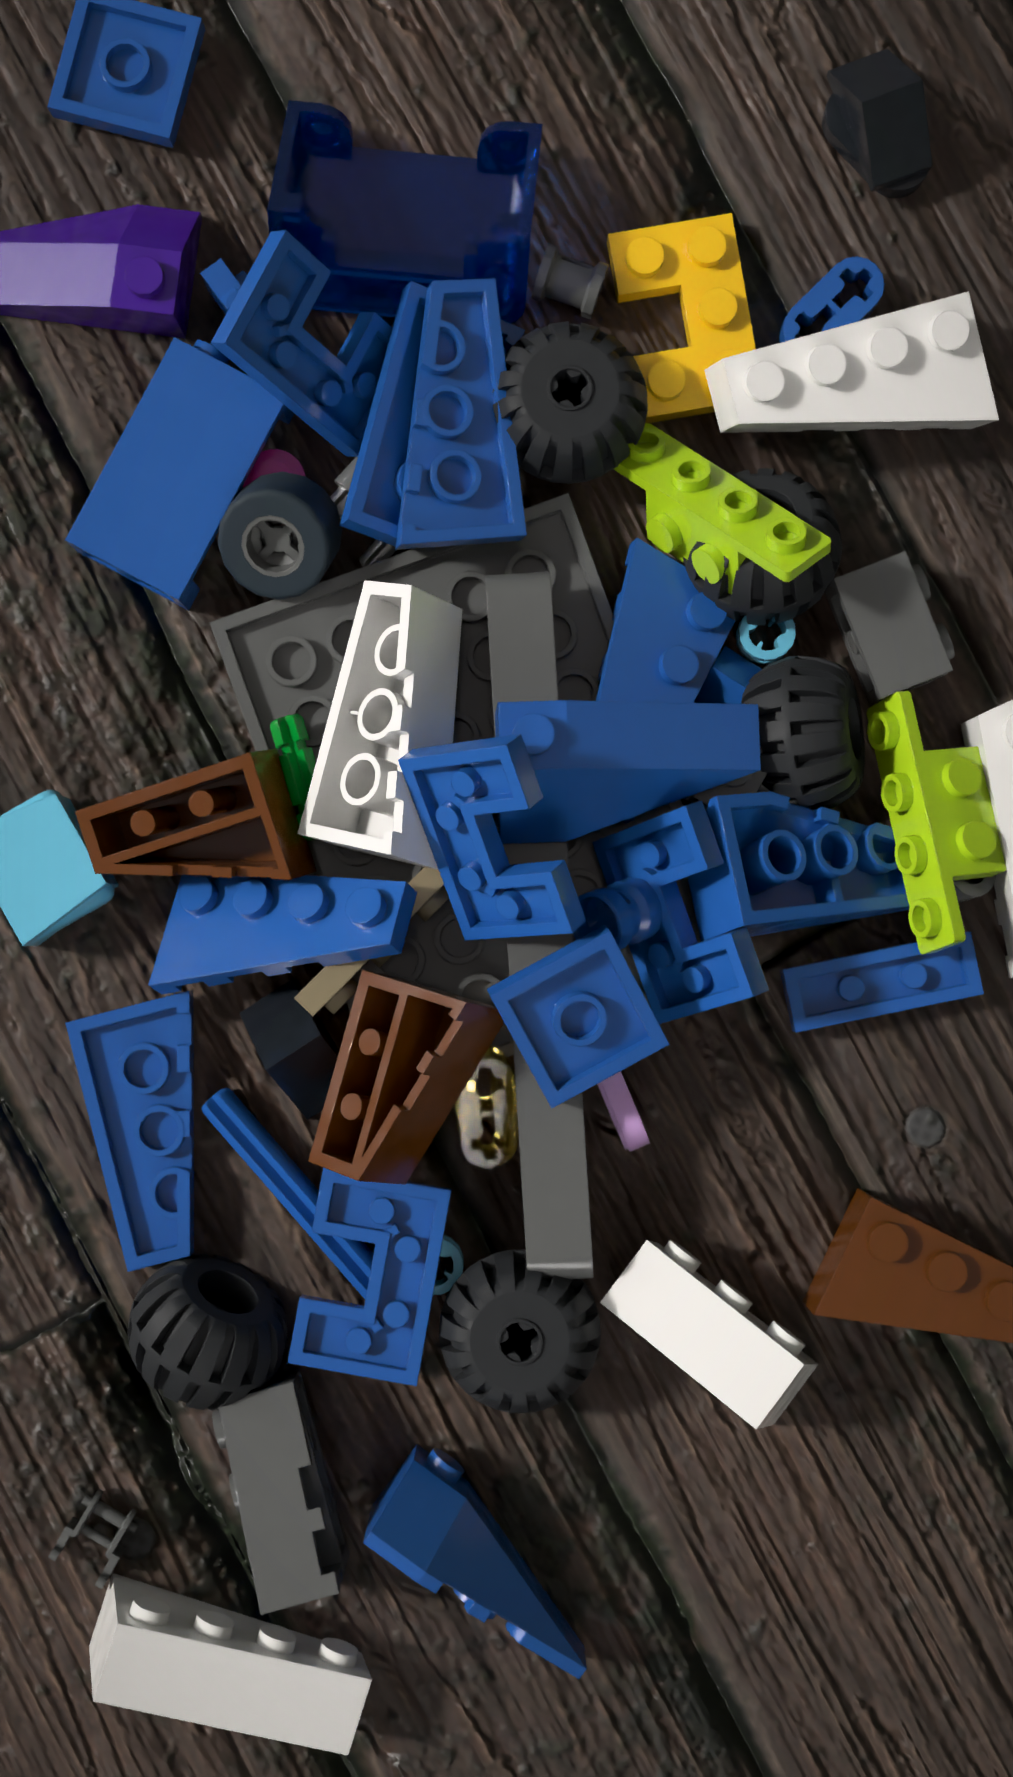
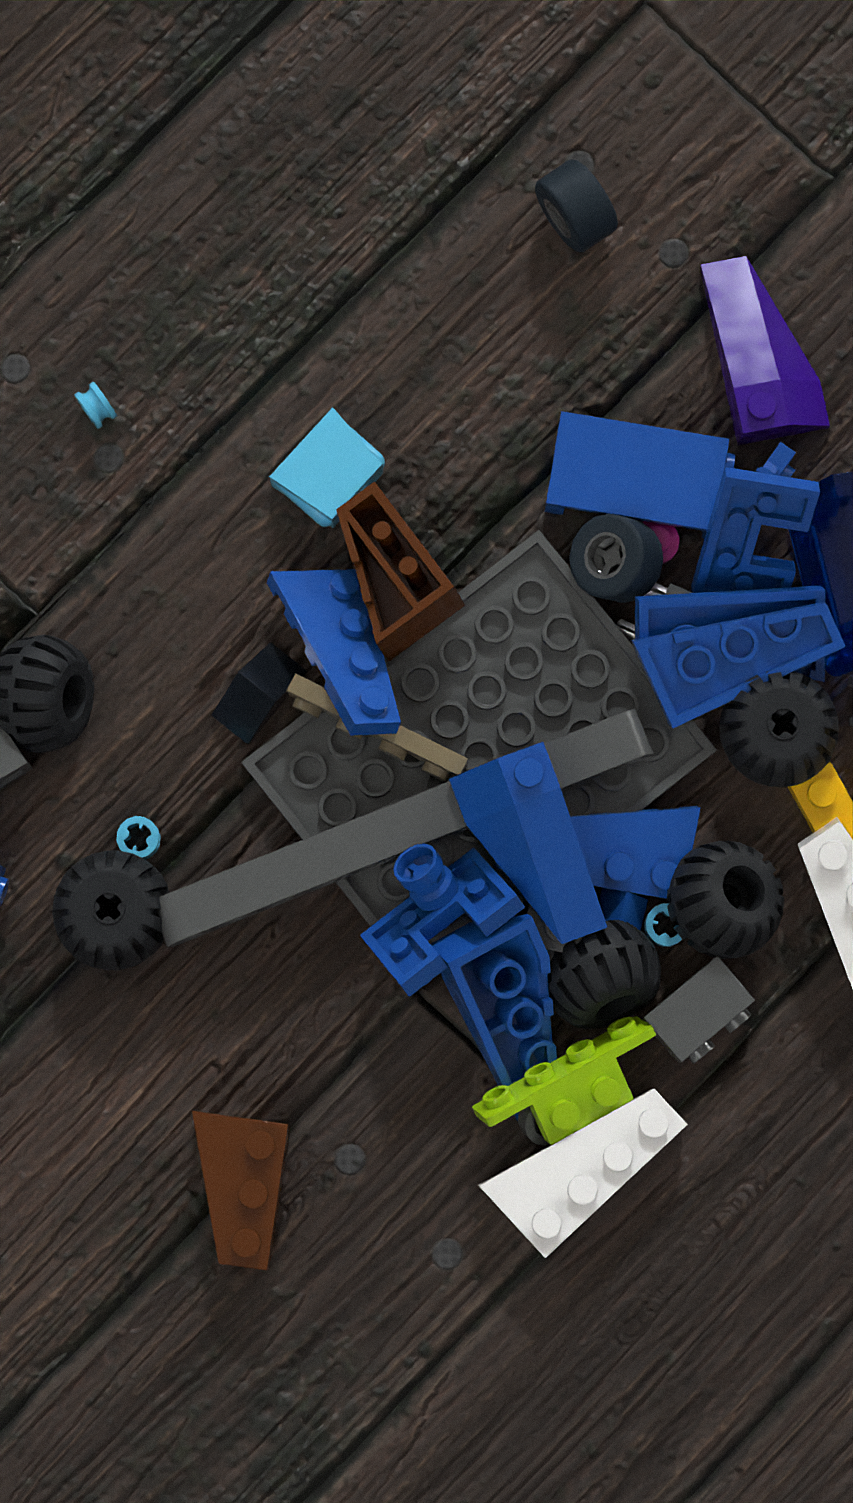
camera: 70 degrees right, 5 degrees down
(141, 1111) = (178, 597): blue wing -> none
(285, 1182) = (145, 743): blue axle -> none
(296, 759) = (451, 629): green axle -> none
(388, 699) = (503, 678): white wedge -> none
(390, 1330) = (89, 819): blue plate -> none
(398, 1076) = (265, 763): reddish brown wedge -> none
(455, 797) = (468, 735): blue plate -> none
(499, 1105) = (258, 826): clear yellow beam -> none
(578, 1016) = (347, 870): blue plate -> none
(623, 1112) = (304, 922): lavender tile -> none
(701, 502) = (738, 848): lime bracket -> none
(710, 1332) = (153, 1048): white wedge -> none
(878, 983) = (442, 1088): blue plate -> none

